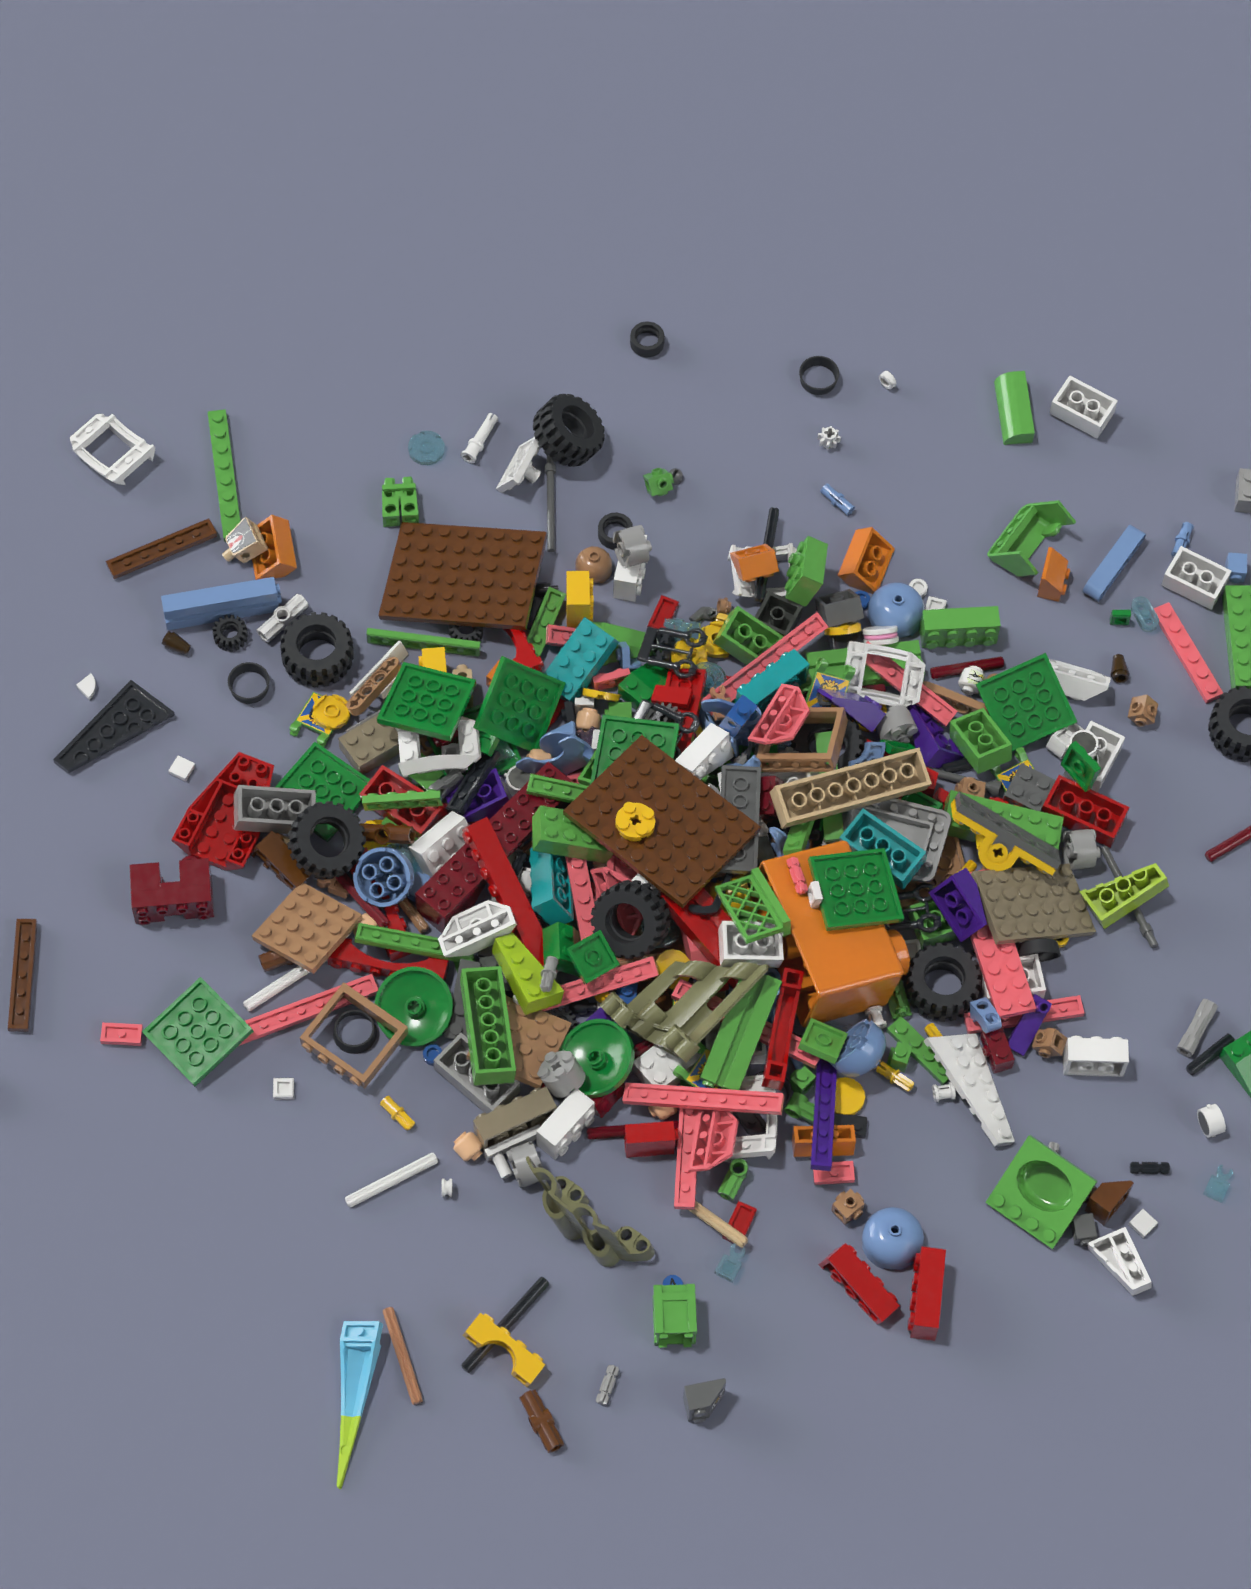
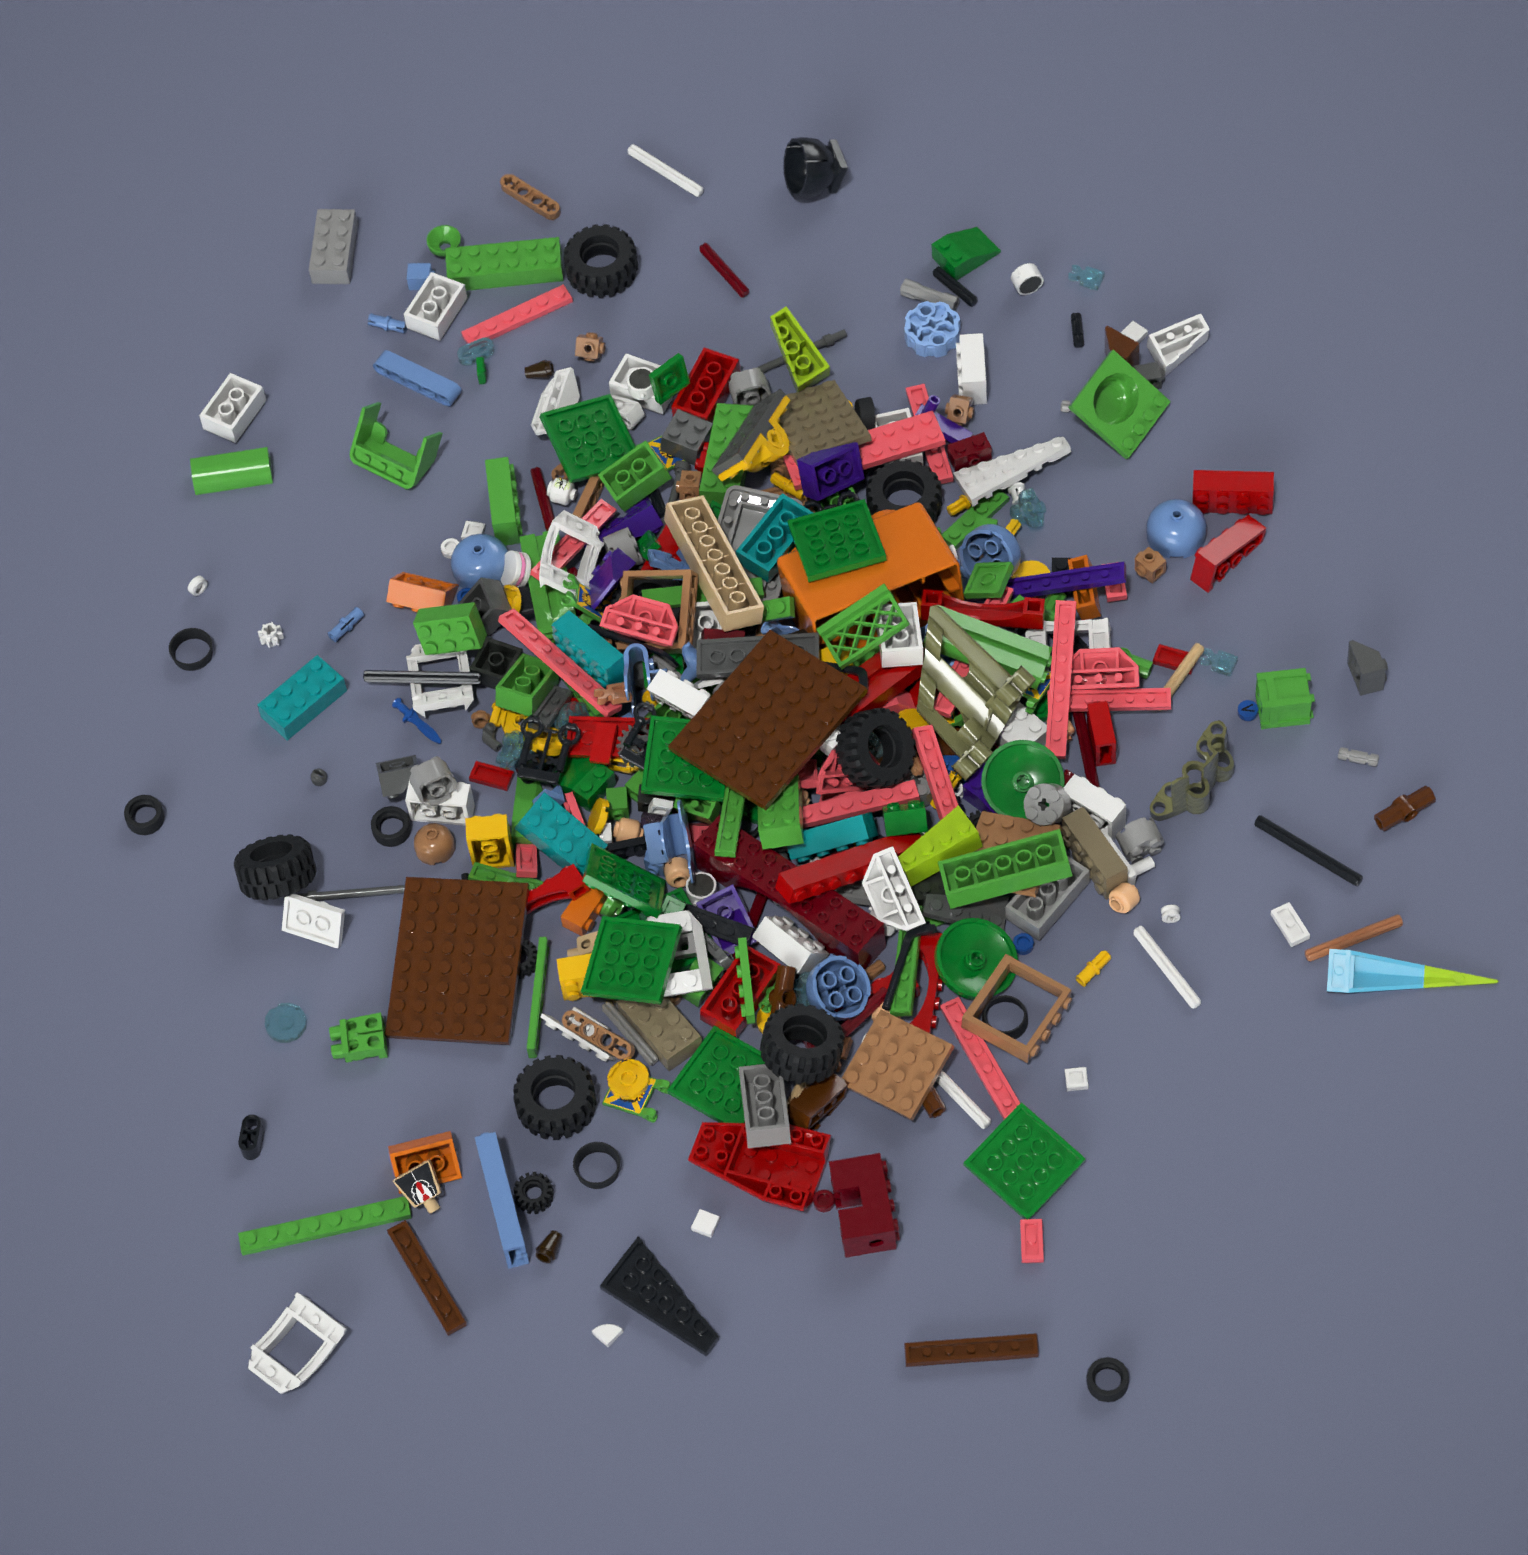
camera: 85 degrees left, 5 degrees down
(290, 610) = (522, 1147): white piece -> none
(309, 418) = (256, 1136): none -> black beam
(409, 935) = (907, 941): none -> black piece
(422, 1296) = (1290, 924): none -> white plate
(475, 444) = (282, 970): white pin -> none
(525, 1364) = (1350, 826): yellow arch -> none
(548, 974) = (944, 815): light grey axle -> none
(592, 957) = (920, 780): green plate -> none
(635, 811) = (782, 743): yellow plate -> none
(658, 482) = (331, 787): bright green brick -> none
(662, 528) = (395, 775): none -> dark grey slope
(714, 653) = (551, 706): none -> dark grey tile
(723, 559) = (411, 716): none -> blue sword
(738, 715) = (643, 655): blue torso -> none
(755, 562) = (438, 678): orange slope -> none
(757, 461) = (302, 697): none -> teal brick
(797, 875) = (828, 587): coral axle -> none
(814, 894) = (849, 569): white tile -> none
(921, 1098) = (1028, 509): none -> clear light blue plate
(987, 1017) = (942, 453): medium blue leg -> none
(1053, 576) = (431, 423): orange slope -> none
(1141, 1019) = (932, 329): none -> light blue connector

